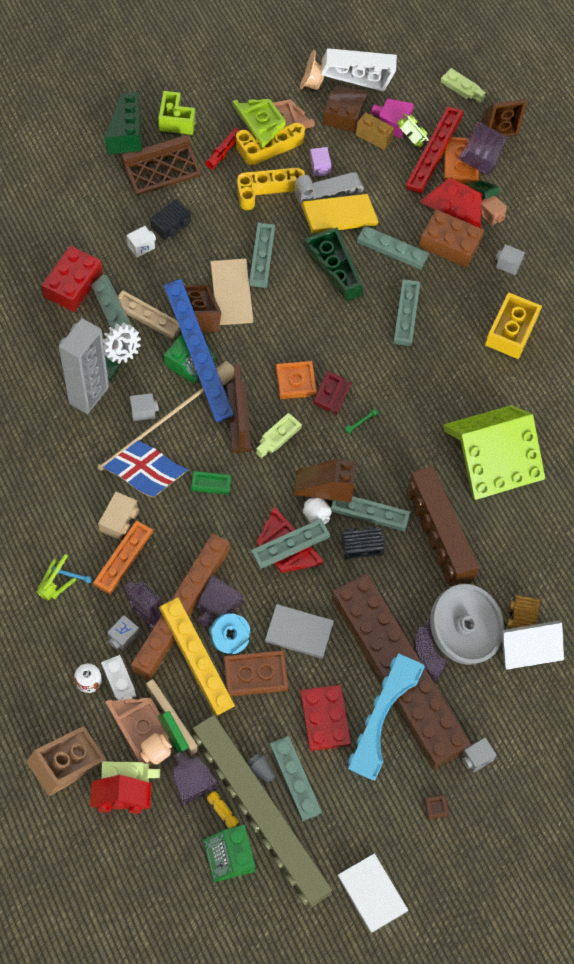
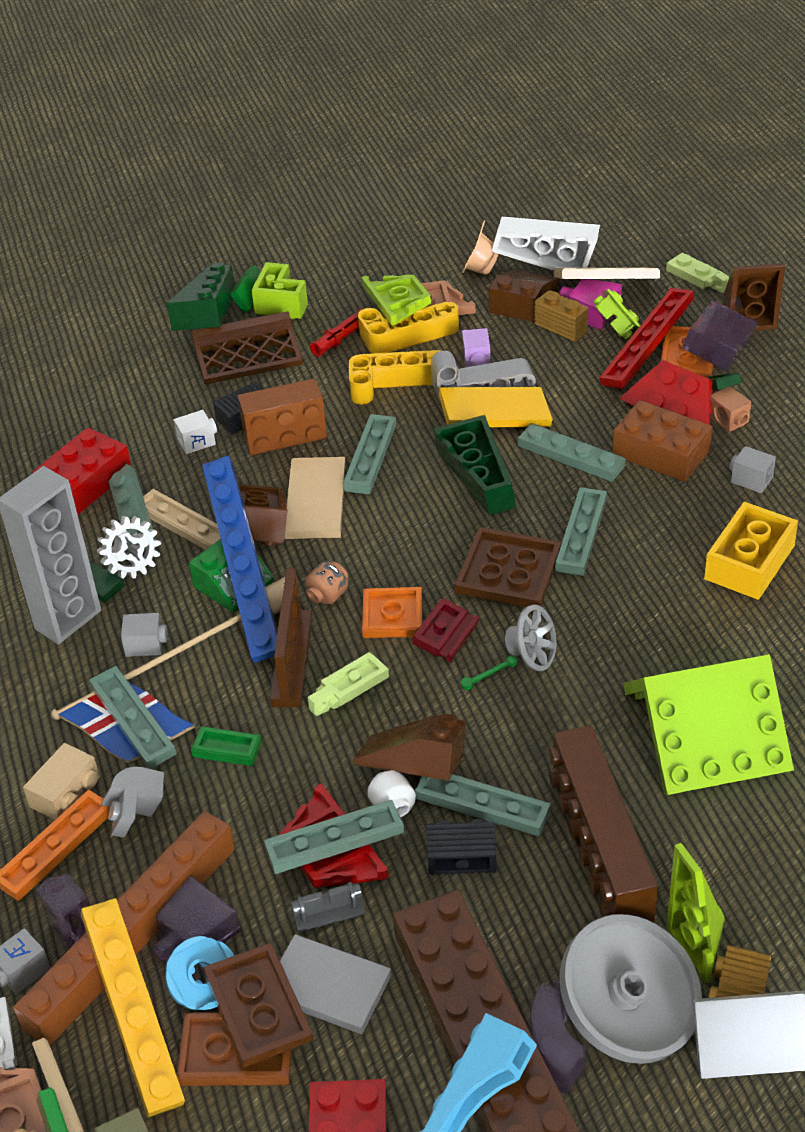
camera: 15 degrees right, 20 degrees down
(151, 468) = (132, 717): none -> sand green plate
(152, 109) = (243, 290): none -> green tile
(164, 523) = (132, 792): none -> light grey brick
(201, 230) = (282, 416): none -> dark orange brick
(252, 362) = (326, 582): none -> nougat head
(266, 650) = (257, 1004): none -> reddish brown plate
(291, 585) = (328, 907): none -> dark grey hinge
(364, 343) = (508, 567): none -> reddish brown plate
(384, 398) = (527, 638): none -> light grey wheel
(402, 92) = (606, 273): none -> tile
(498, 582) = (694, 914): none -> lime wedge

